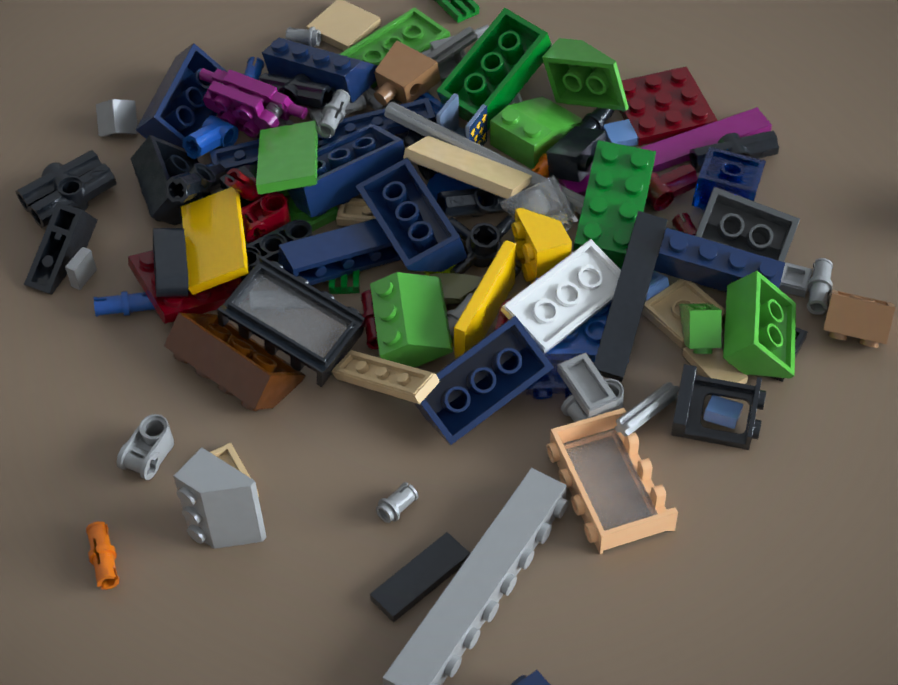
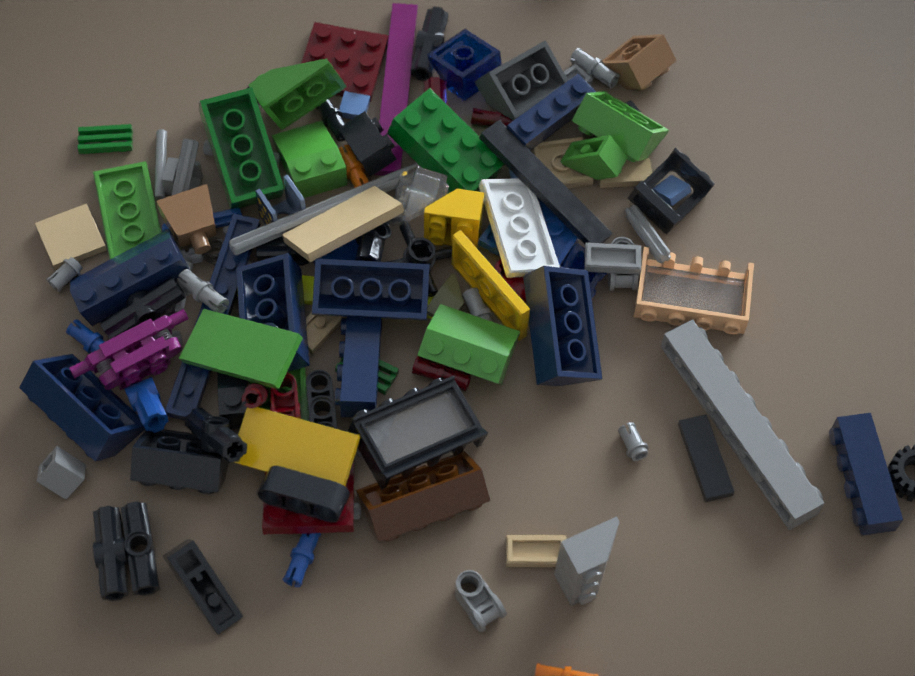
camera: 65 degrees left, 10 degrees up
(81, 268) = (237, 576): light grey tile -> none
(385, 376) = (523, 388): tan tile -> none

